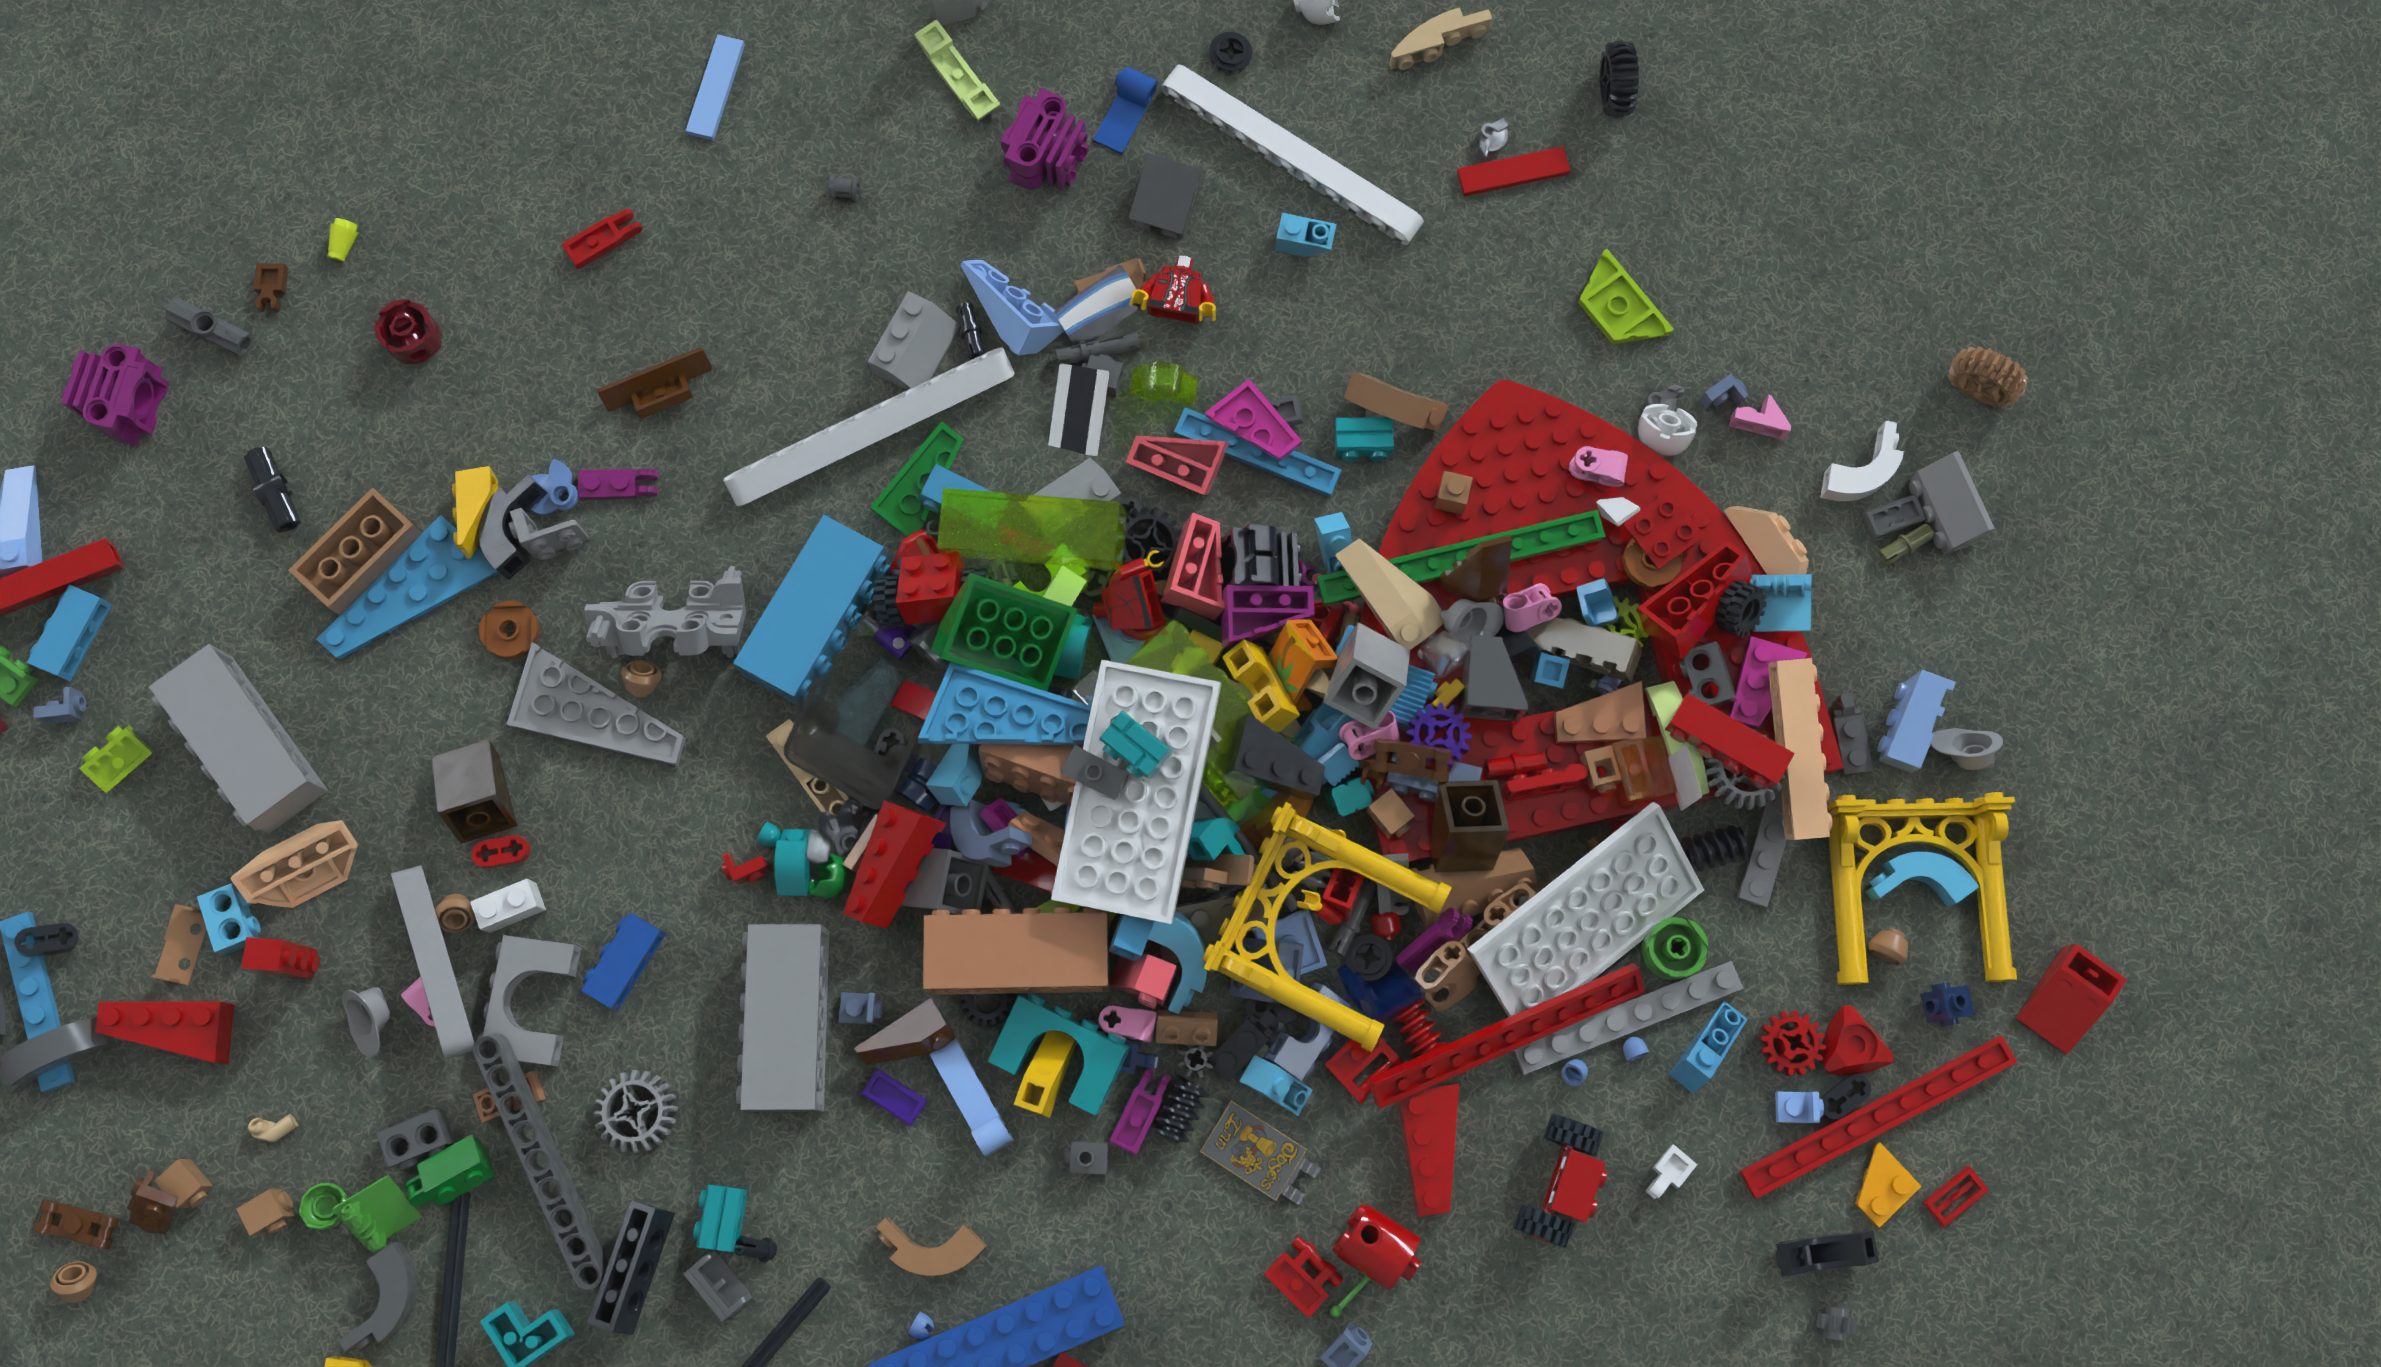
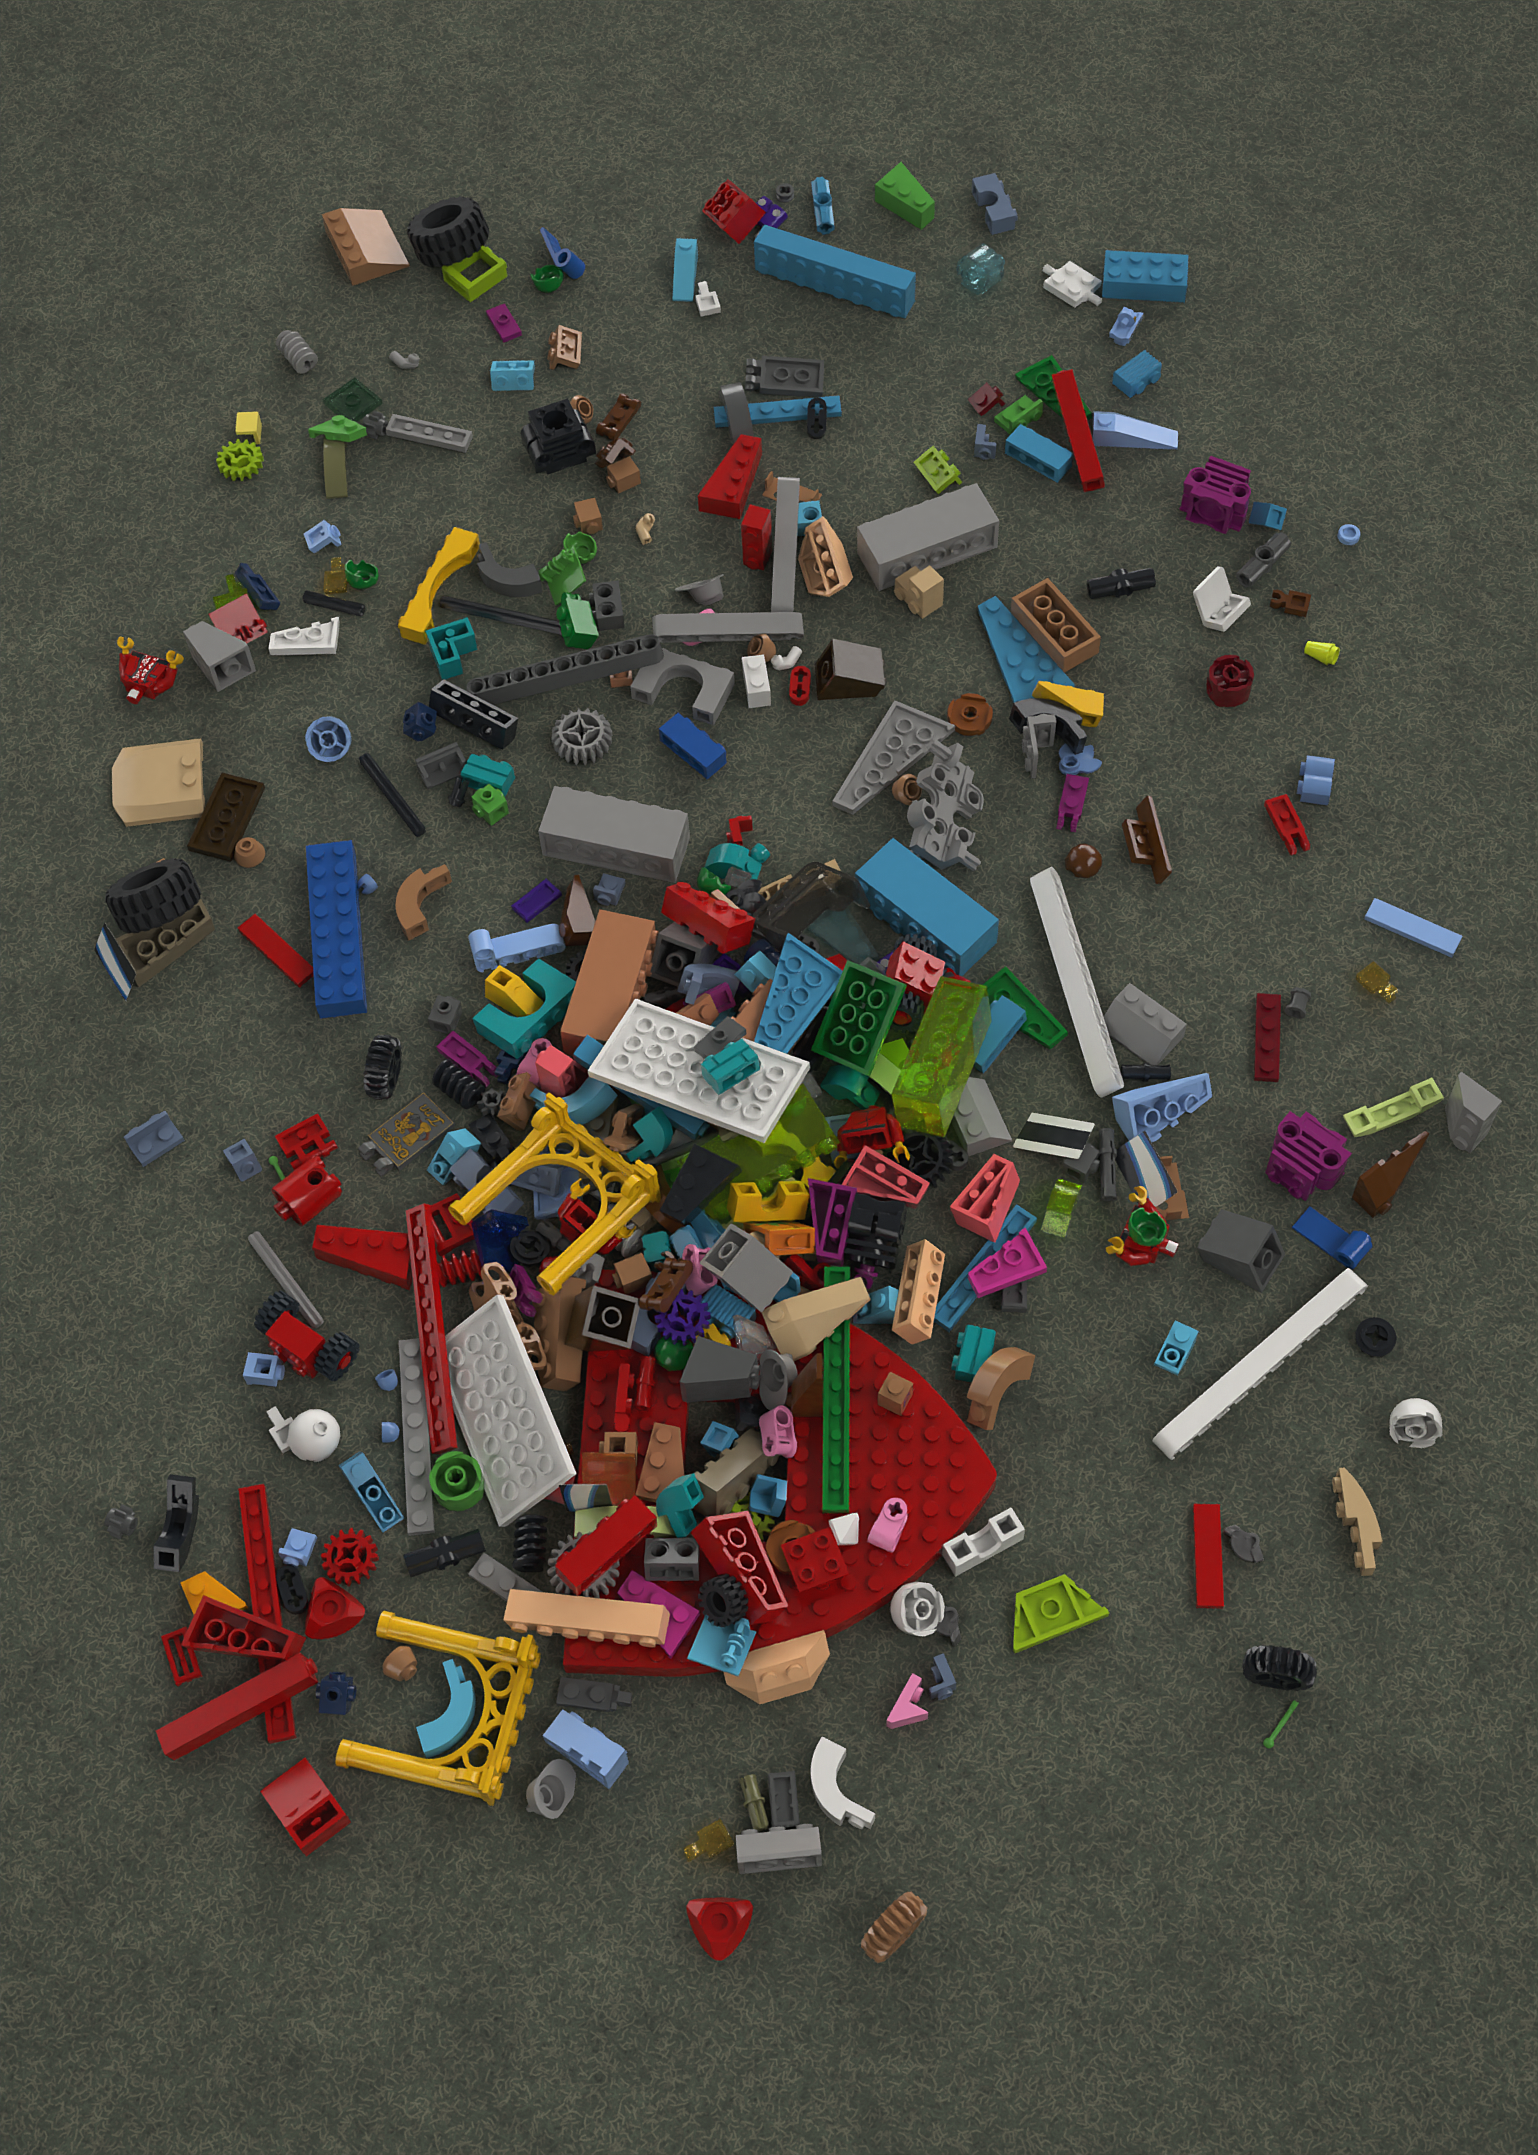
camera: 110 degrees right, 15 degrees down
(137, 331) = (1267, 515): none -> dark azure panel
(150, 239) = (1348, 534): none -> light blue tile
(160, 1292) = (557, 437): none -> black piece
(284, 919) = (785, 544): none -> light grey beam
(290, 362) = (1217, 603): none -> white bracket
(326, 732) = (920, 590): none -> tan brick
(465, 877) = (781, 663): none -> white arm
(534, 215) = (1316, 780): none -> medium blue brick
(657, 1338) = (419, 722): none -> dark blue brick
(699, 454) = (1083, 861): none -> reddish brown hair
(778, 1195) = (489, 804): none -> bright green brick
(795, 114) = (1377, 979): none -> clear yellow plate
(893, 214) = (1267, 1037): none -> dark red plate
(1046, 63) = (1382, 1181): none -> reddish brown wedge
(1180, 280) = (1146, 1228): none -> green hair
(1187, 1209) = (382, 1067): none -> black gear
(1315, 505) = (918, 1292): none -> light nougat brick
(1479, 744) = (672, 1356): none -> green hair
(1485, 1239) = (285, 1279): none -> light grey axle
(1558, 370) = (995, 1537): none -> white arch
(1617, 1228) = (257, 1364): none -> light blue brick
(1651, 680) = (677, 1503): none -> teal brick
(1669, 1131) = (313, 1435): none -> white cylinder
(1683, 86) = (1269, 1742): none -> bright green hinge
(1754, 939) = (444, 1552): none -> black piece
(1926, 1125) = (234, 1632): none -> red wedge
(1957, 575) = (712, 1840): none -> clear yellow plate
(1999, 1105) = (237, 1706): none -> red brick
(2031, 548) = (719, 1923): none -> red hat

